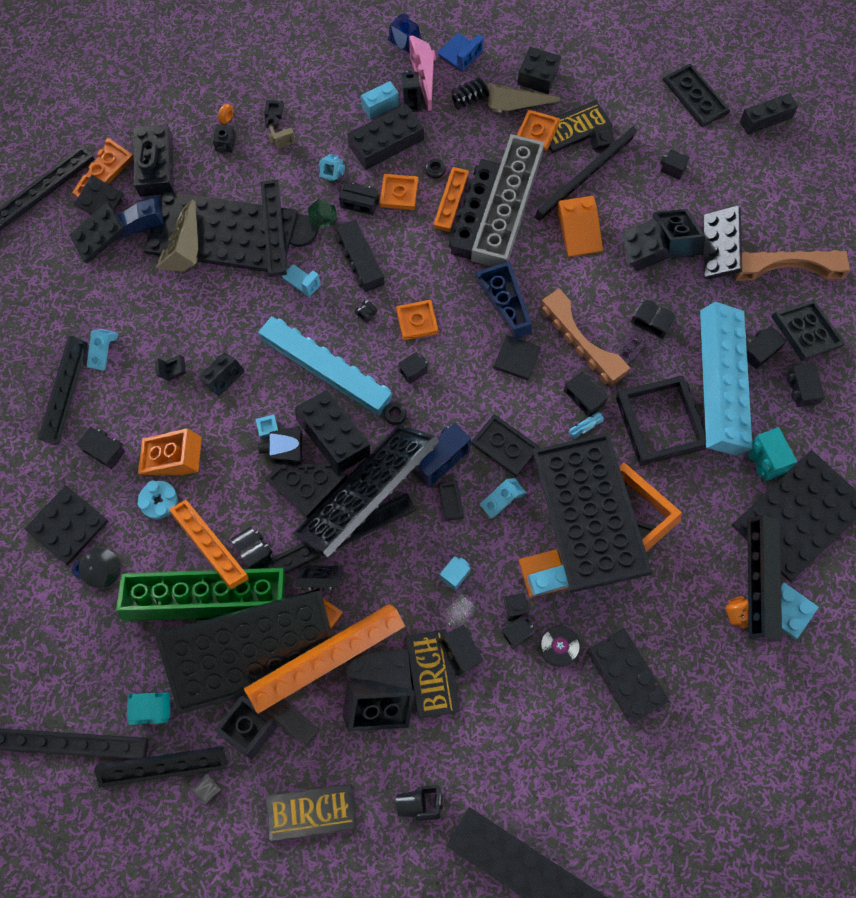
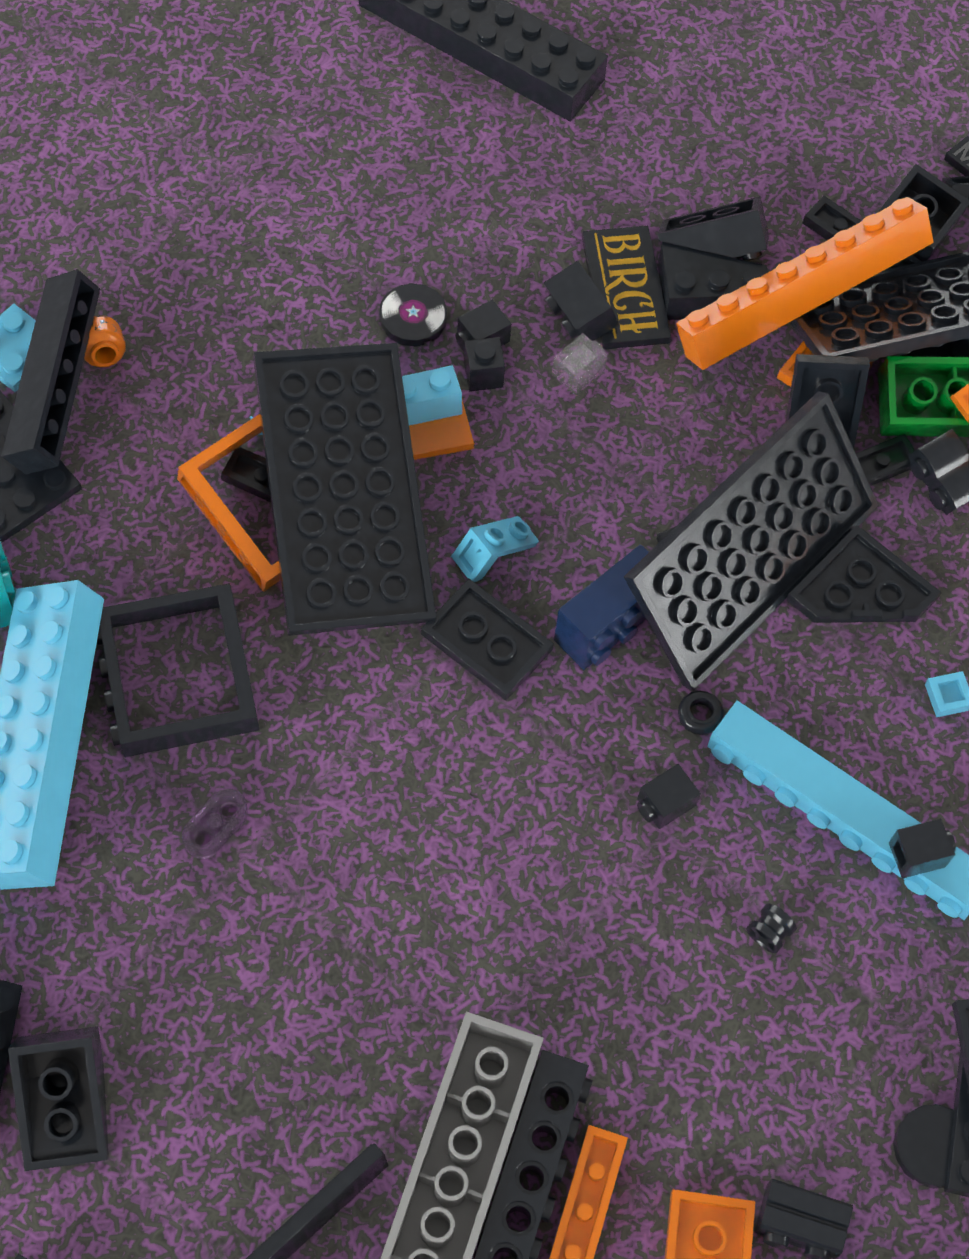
camera: 175 degrees right, 5 degrees down
(283, 446) = (911, 649): black torso -> none
(293, 335) = (922, 848): none -> black brick
(302, 281) = (917, 1010): medium azure bracket -> none
(310, 812) = (806, 123): black tile -> none
(322, 214) = (888, 1169): clear green brick -> none
(332, 431) = (823, 664): black brick -> none
(360, 255) = (793, 1064): black brick -> none
(414, 803) = (651, 119): black piece -> none
(417, 320) = (660, 912): orange tile -> none
(451, 500) = (590, 546): black tile -> none
(455, 572) = (587, 422): medium azure brick -> none
(505, 296) = (473, 951): dark blue wedge -> none
(517, 357) = (451, 819): black tile -> none
(580, 226) = (285, 1122): orange slope -> none
(586, 393) = (320, 728): black brick -> none
(586, 425) = (325, 673): medium azure axle -> none
(608, 365) = (266, 785): nougat arch -> none
(627, 676) = (309, 259): black piece -> none
(645, 245) = (145, 1048): black brick -> none
(652, 318) = (156, 885): black brick -> none

